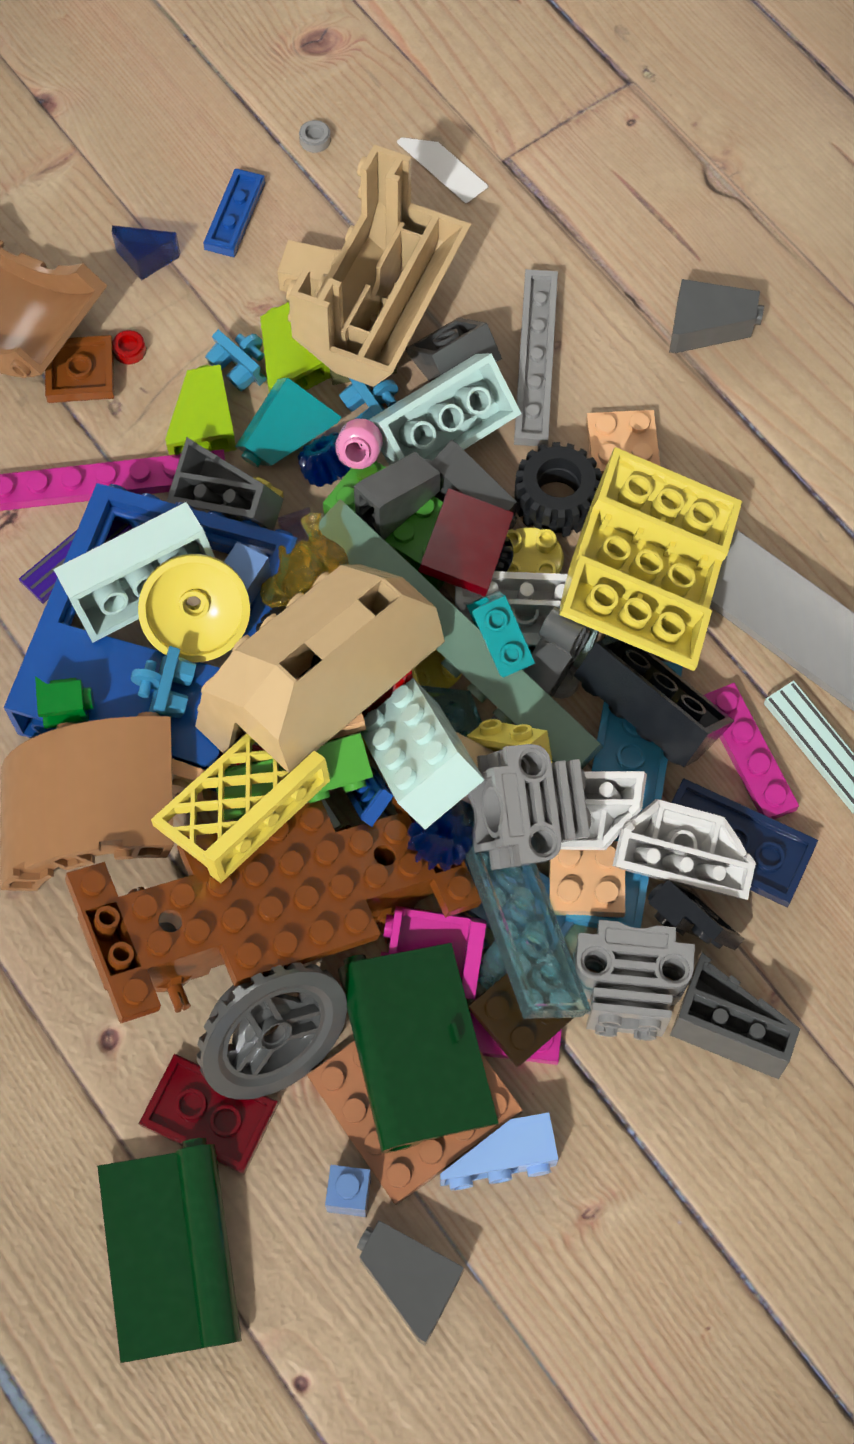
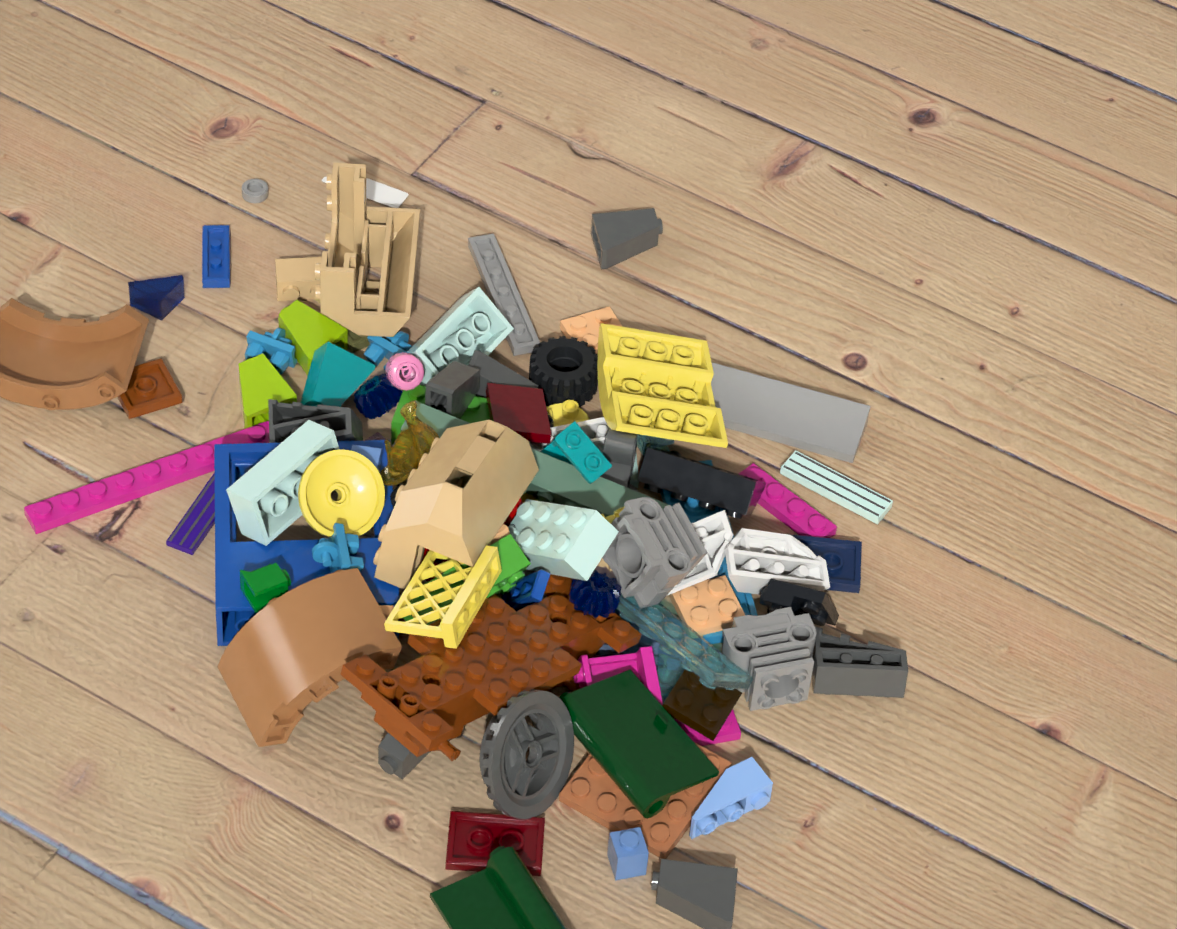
camera: 25 degrees left, 20 degrees down
(129, 347) = (177, 365): red tile -> none
(452, 346) = (437, 300): dark grey slope -> none

